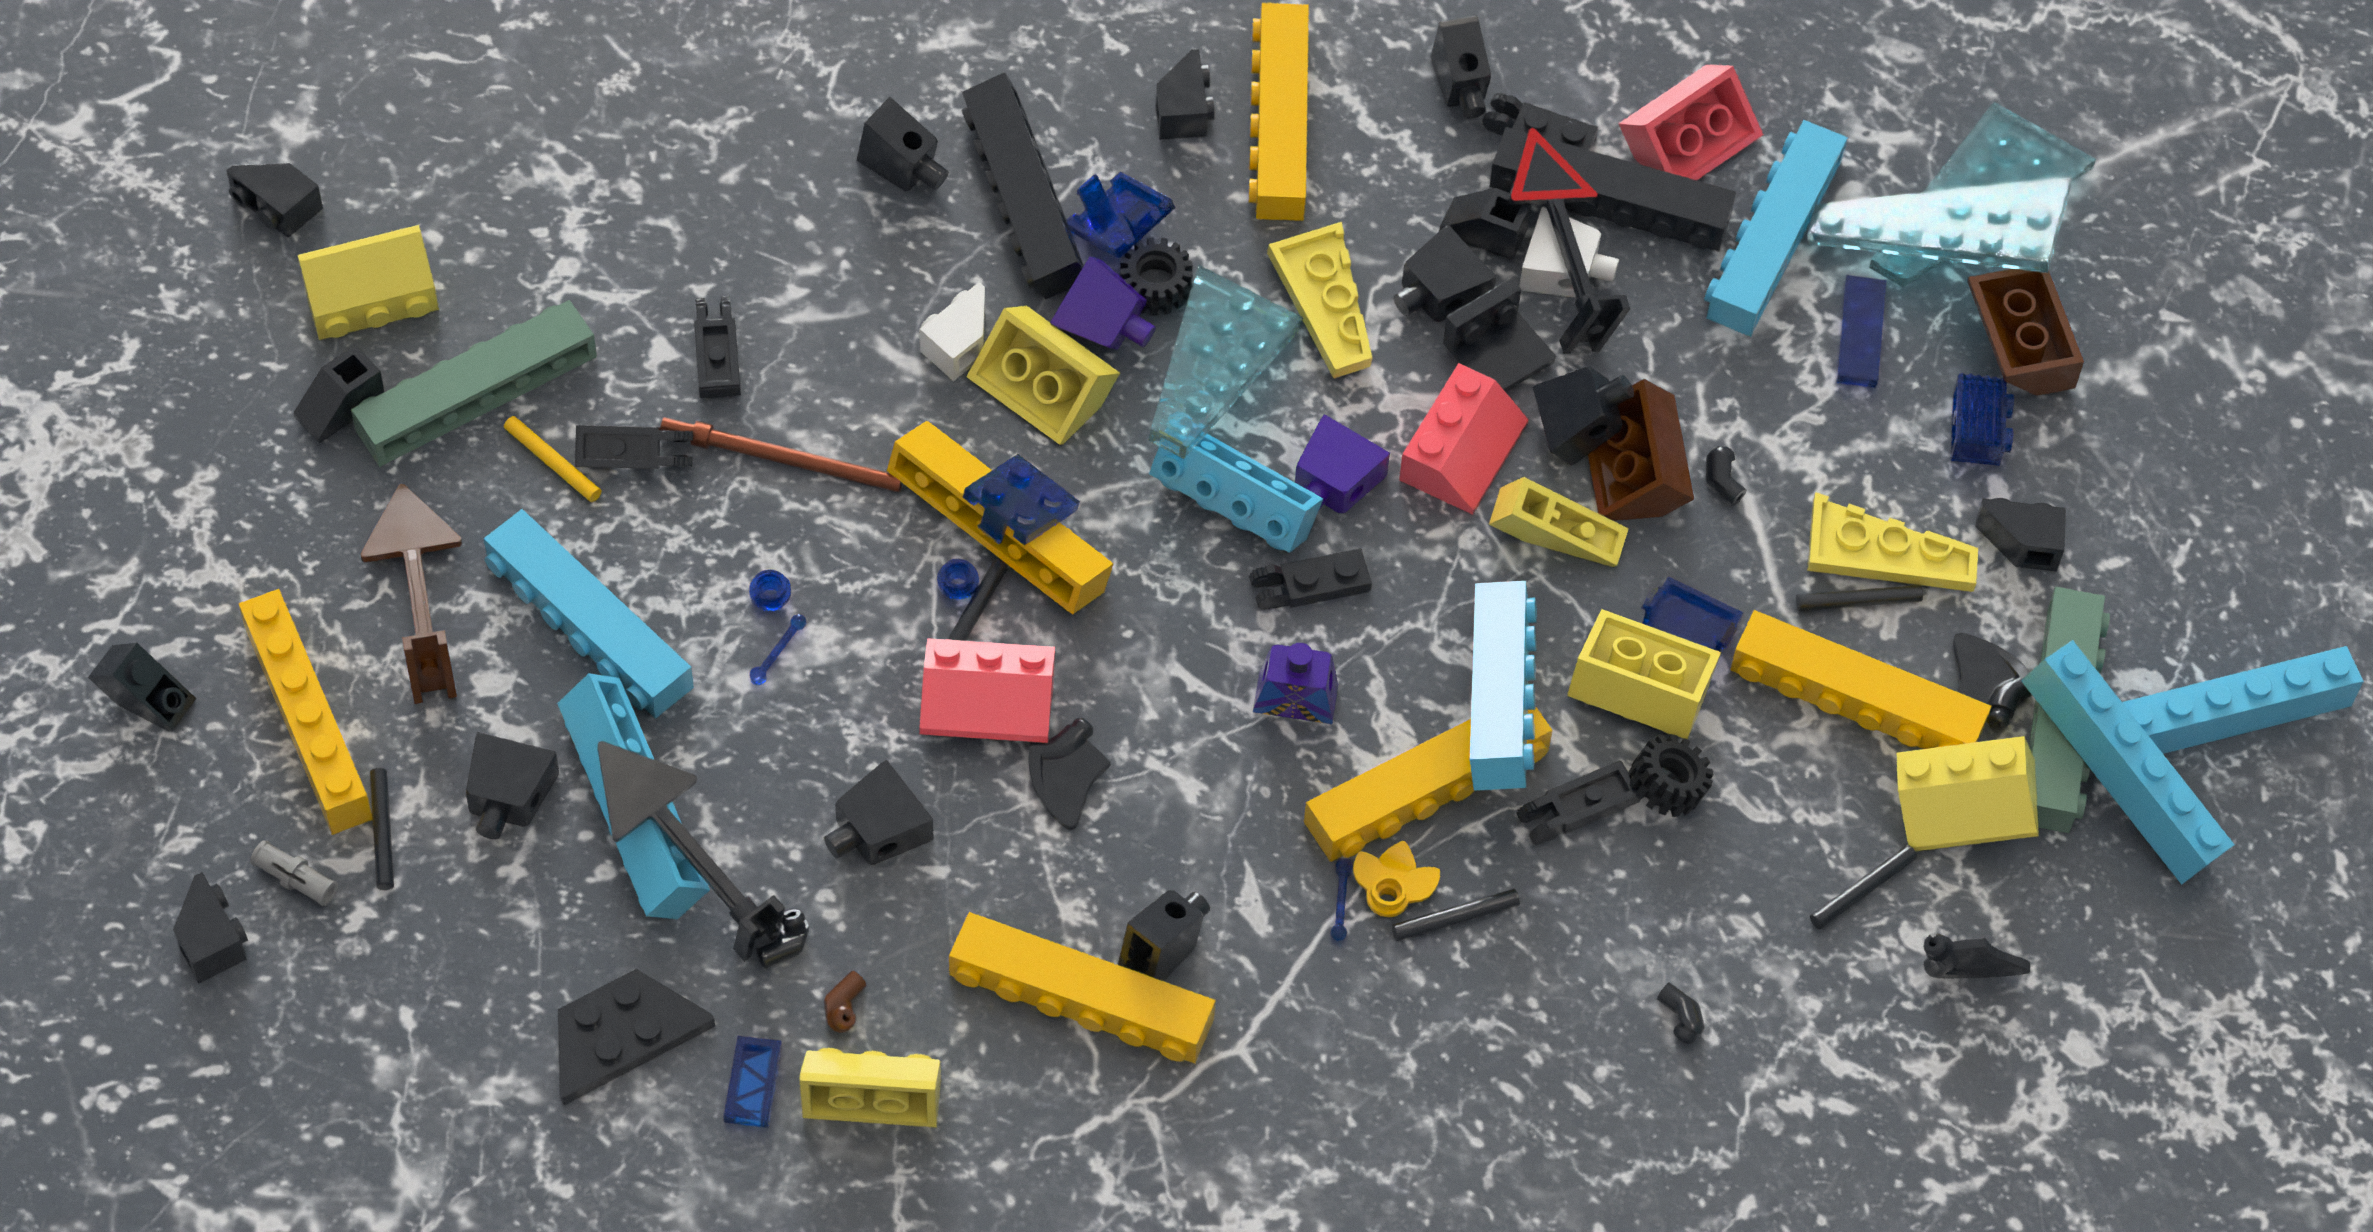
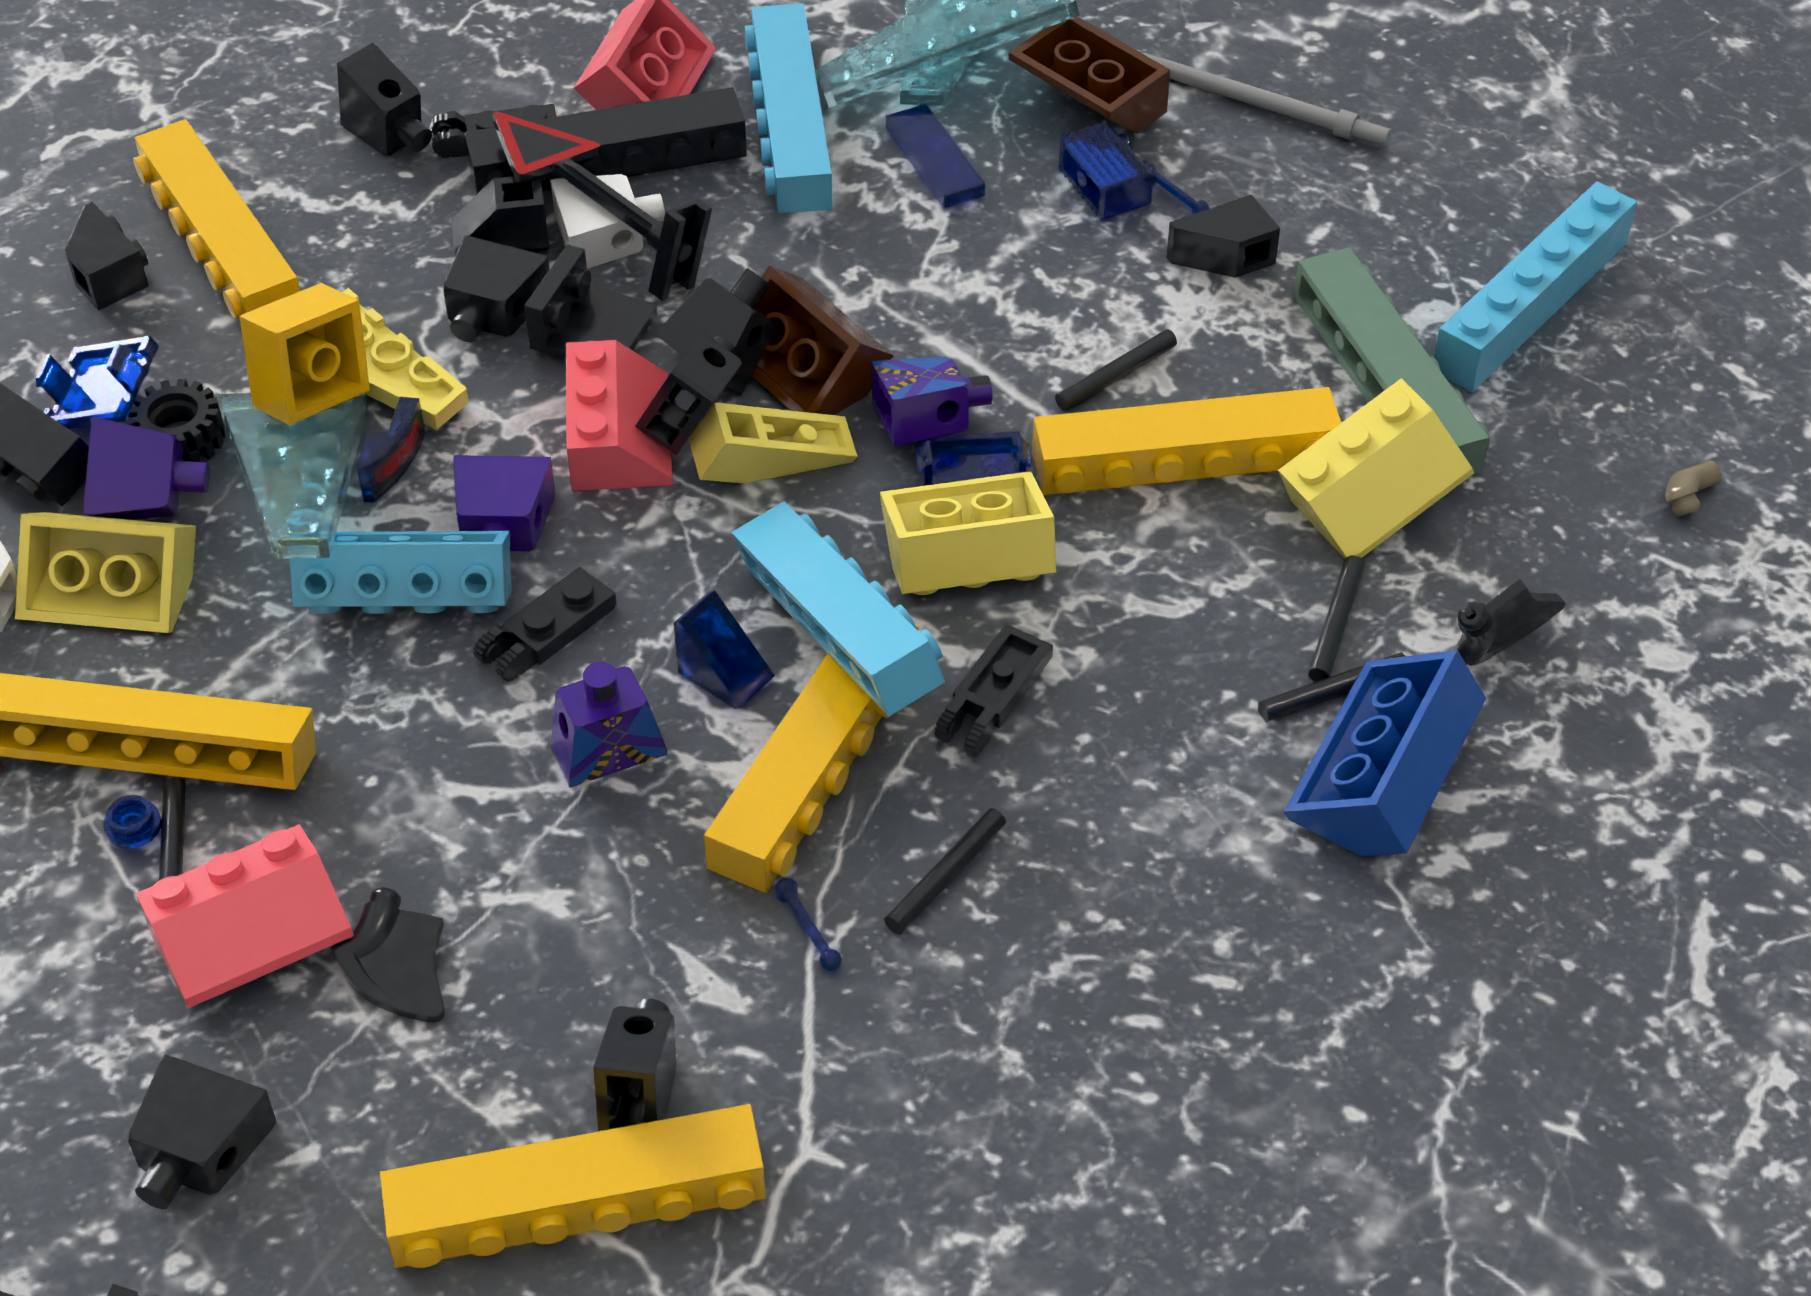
camera: 30 degrees left, 10 degrees down
(1019, 498) = (158, 691): clear blue piece -> none
(1265, 278) = (305, 353): none -> yellow brick
(1284, 385) = (390, 453): none -> slope
(1394, 875) = (851, 866): yellow plate -> none
(1410, 671) = (718, 653): none -> clear blue slope
(1519, 454) = (702, 372): none -> black torso
(1661, 789) = (1070, 610): black tyre -> none
(1687, 1011) = (1262, 829): black arm -> none
(1691, 548) = (925, 397): none -> dark purple torso
(1719, 474) = (898, 331): black arm -> none
(1812, 1006) = (1388, 753): none -> blue slope
(1820, 936) = (1311, 694): none -> black bar
(1871, 548) = (1109, 316): light yellow wing -> none
(1990, 677) = (1296, 368): black arm -> none
(2019, 436) = (1196, 206): none -> clear blue hinge
(2127, 762) = (1501, 365): medium azure brick -> none
(2208, 475) = (1344, 124): none -> light grey bar
(2210, 929) = (1684, 484): none -> dark tan arm

